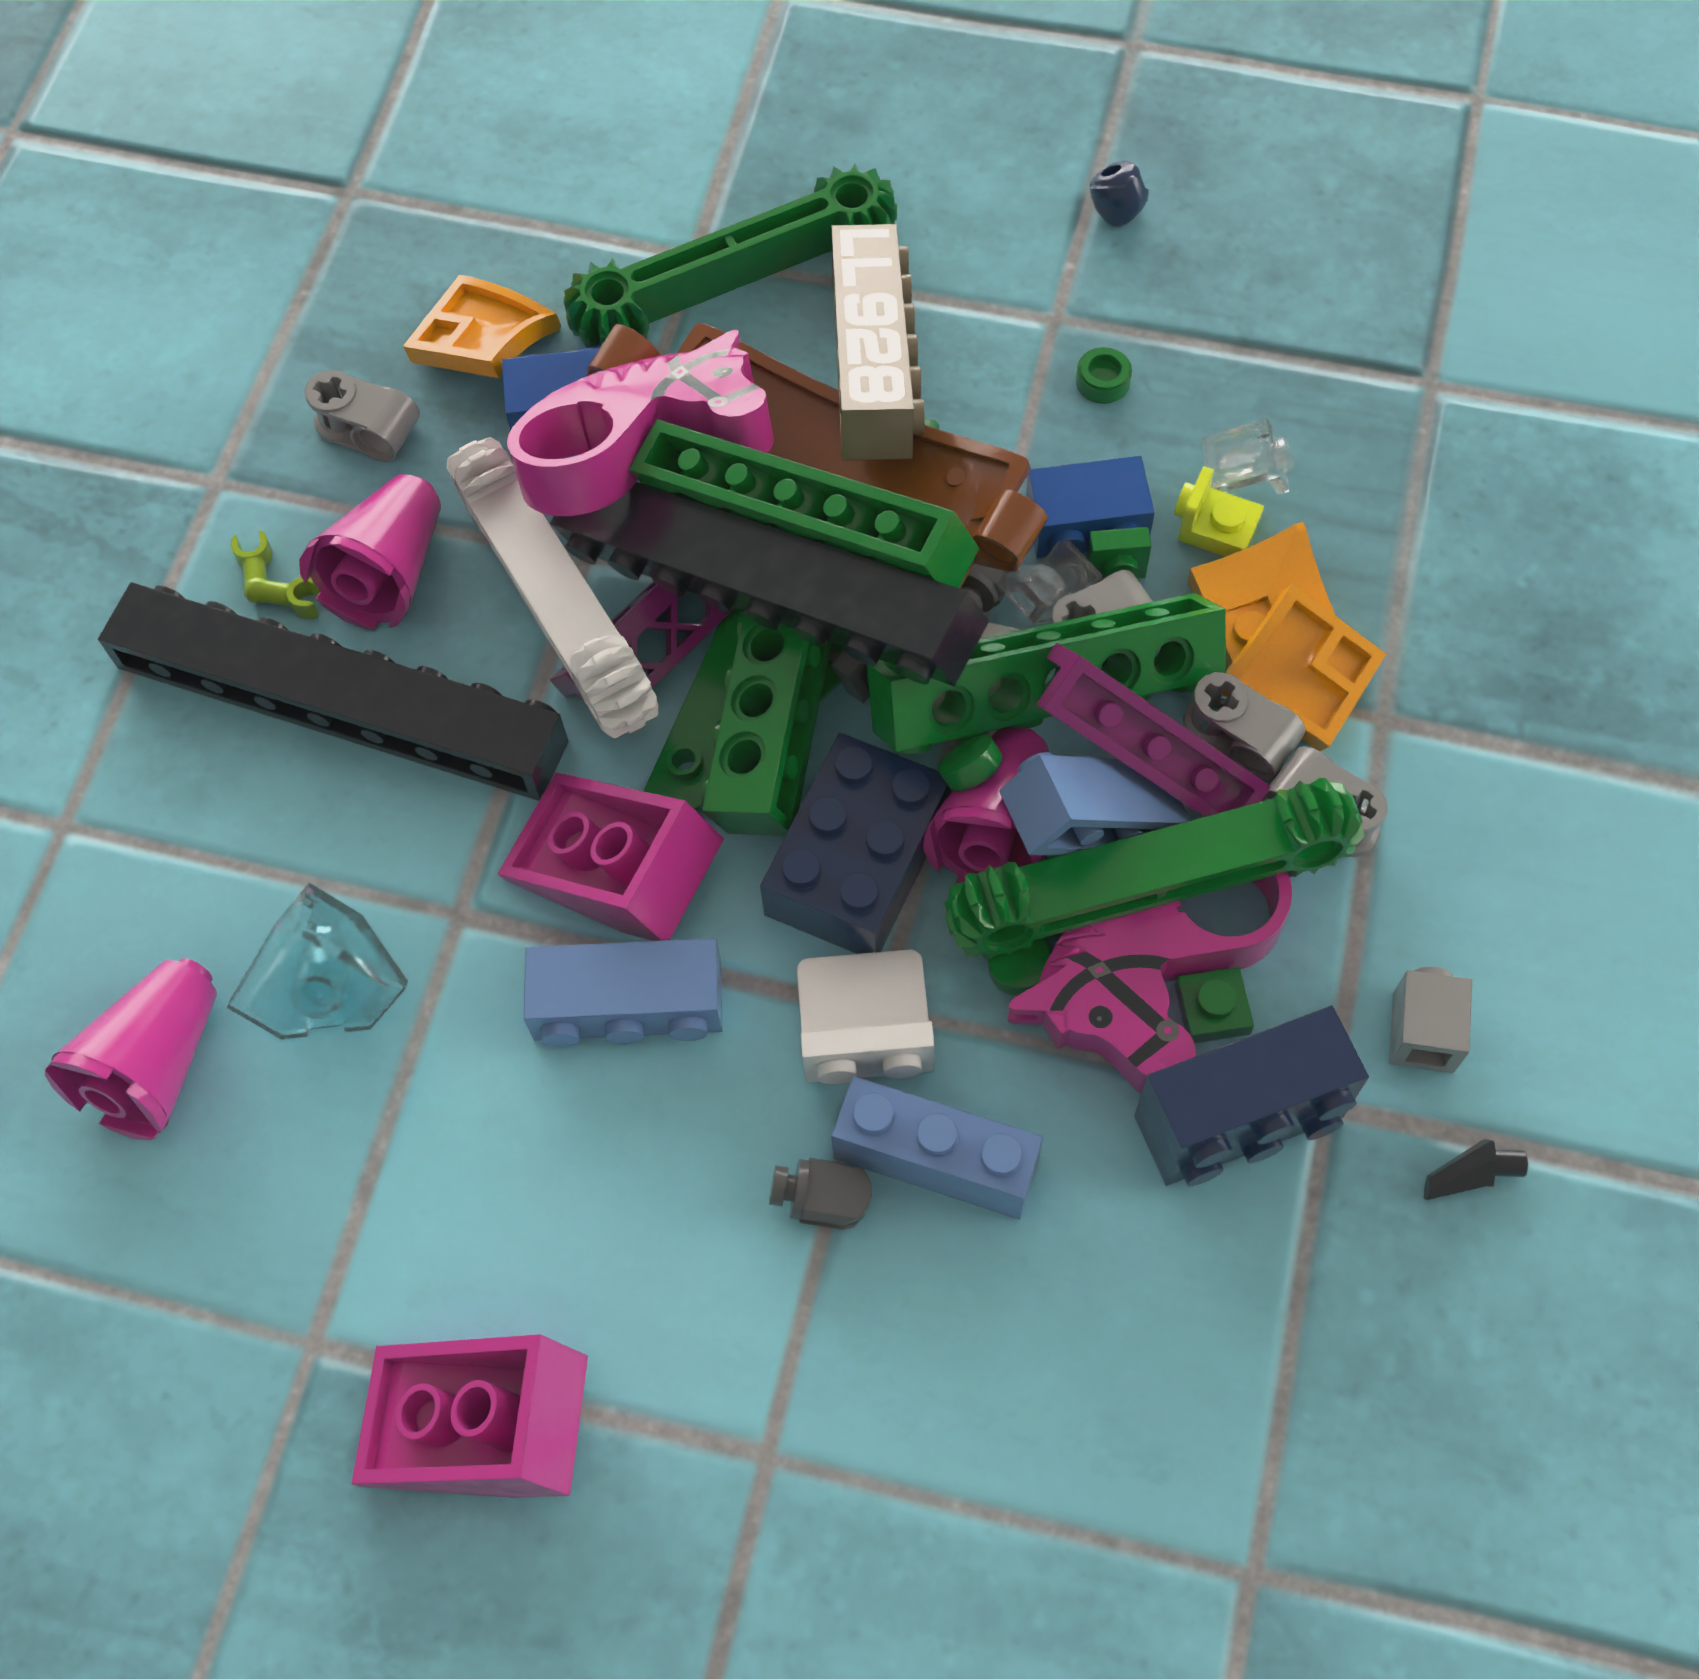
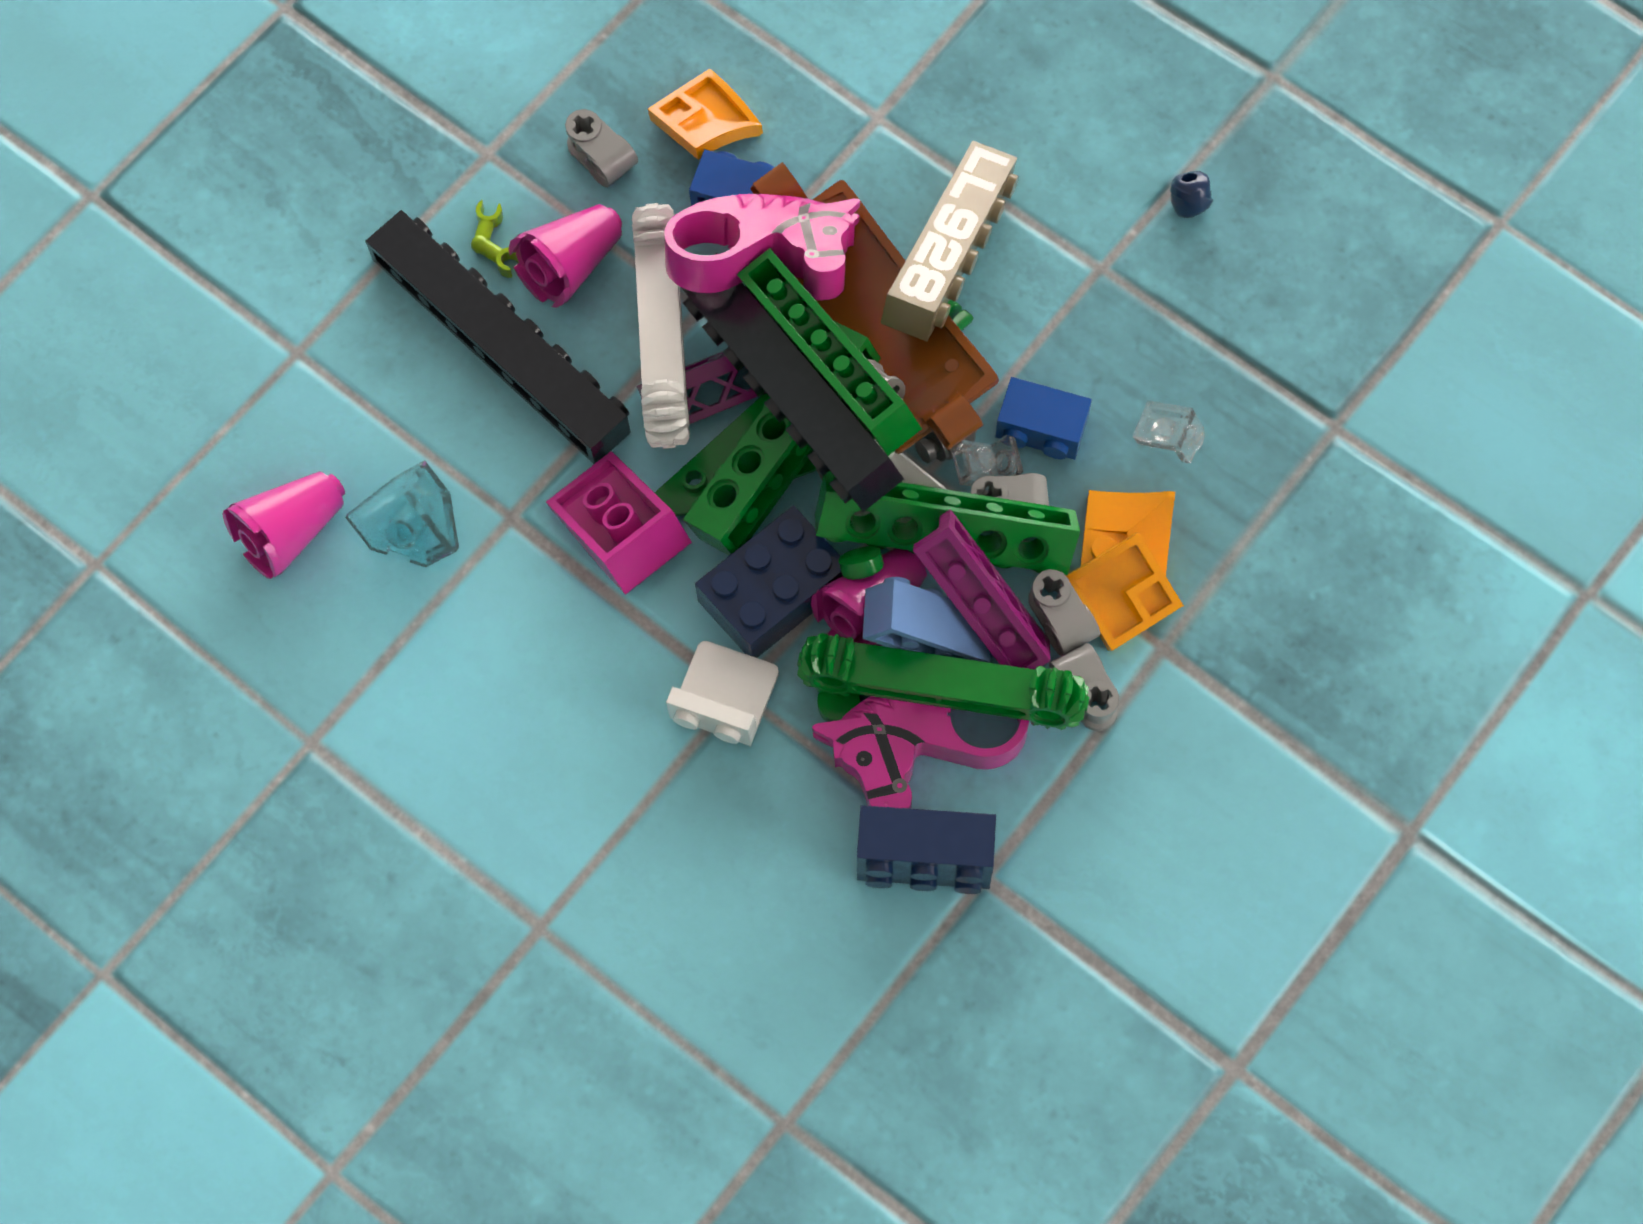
camera: 25 degrees right, 5 degrees up
(473, 1417) = (381, 826): dark pink slope -> none
(623, 991) = (585, 612): medium blue brick -> none
(725, 257) = (894, 131): green arm -> none
(823, 1192) = (645, 789): dark grey arm -> none
(936, 1147) = (725, 792): medium blue brick -> none
(1103, 375) = (1109, 325): green tile -> none
(1120, 550) = (1044, 460): green plate -> none
(1214, 1005) = (945, 783): green plate -> none
(1215, 518) = (1127, 461): neon yellow bracket -> none
(1431, 1020) = (1072, 852): light grey brick -> none
(1475, 1170) = (1049, 956): black bar -> none

